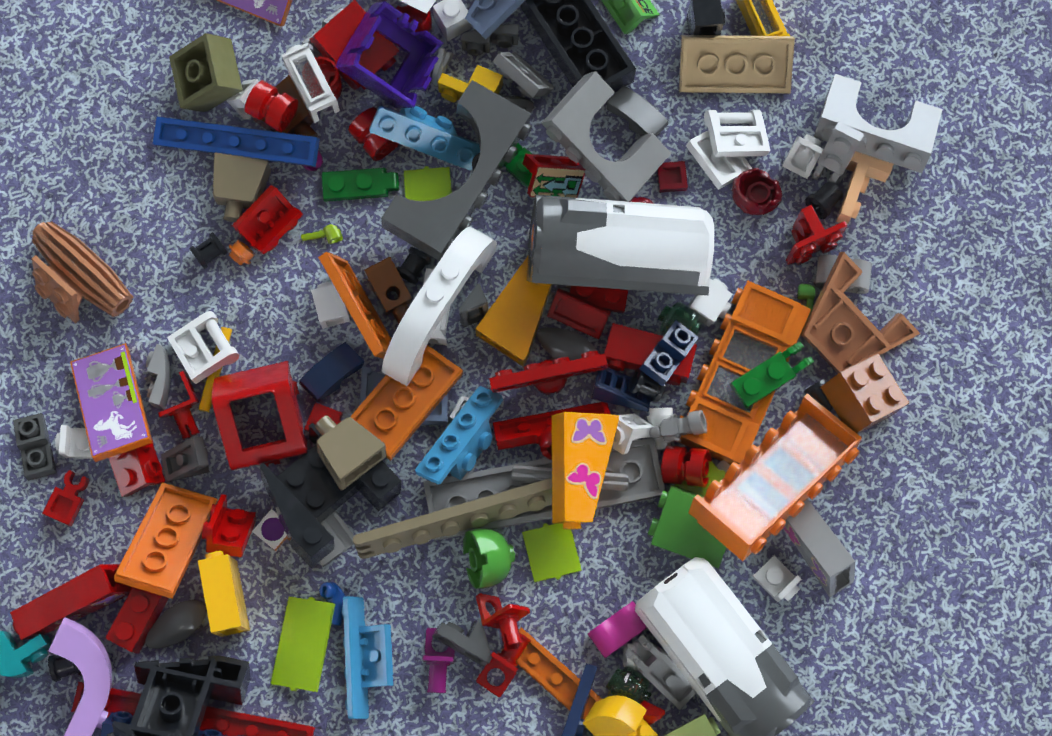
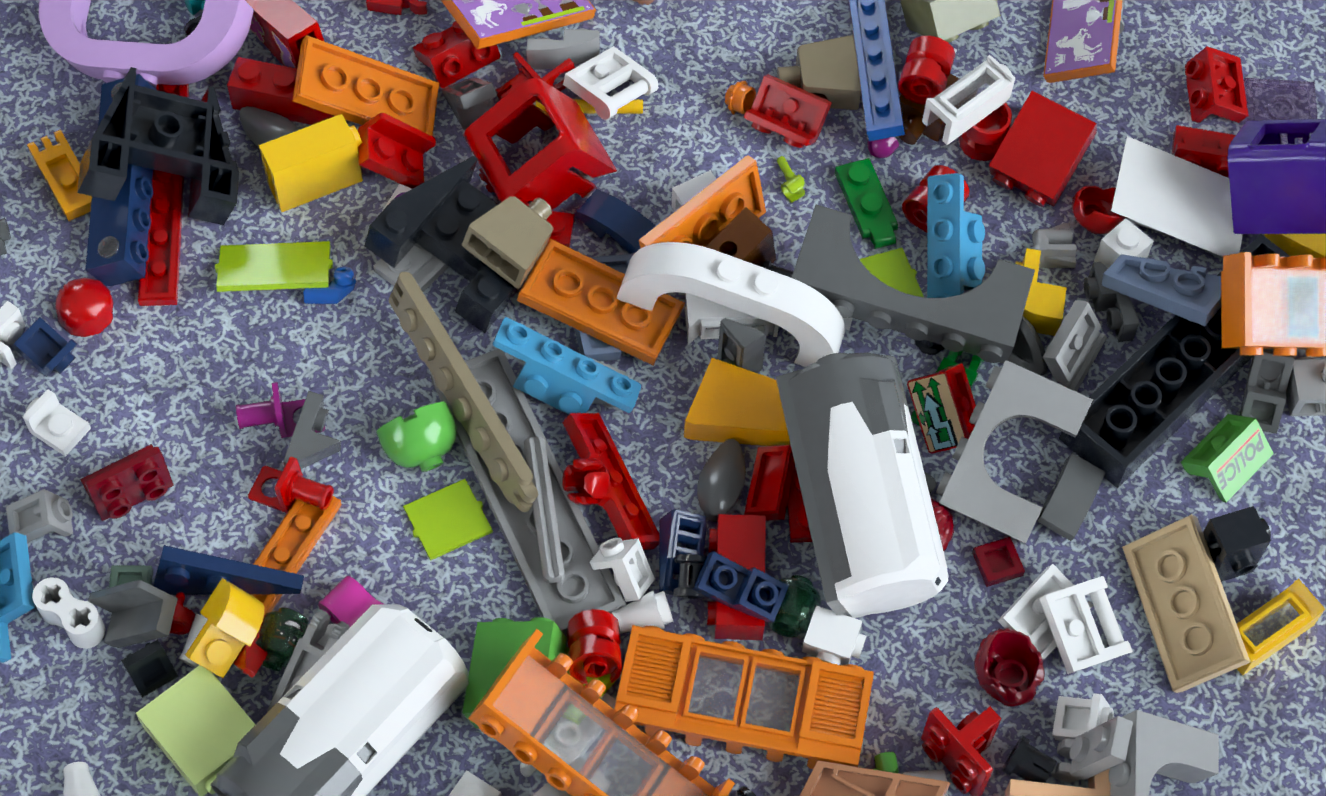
camera: 75 degrees right, 15 degrees down
(208, 250) = (731, 63): black bush -> none
(366, 657) = (268, 330): dark azure bracket -> none
(416, 66) = (1043, 139): dark purple piece -> none
(503, 619) = (342, 467): red bracket -> none
(548, 375) = (674, 461): red plate -> none
(579, 464) = (564, 497): light orange slope -> none
(673, 428) = (649, 634): light grey piece -> none
(769, 376) = (744, 723): green hinge -> none

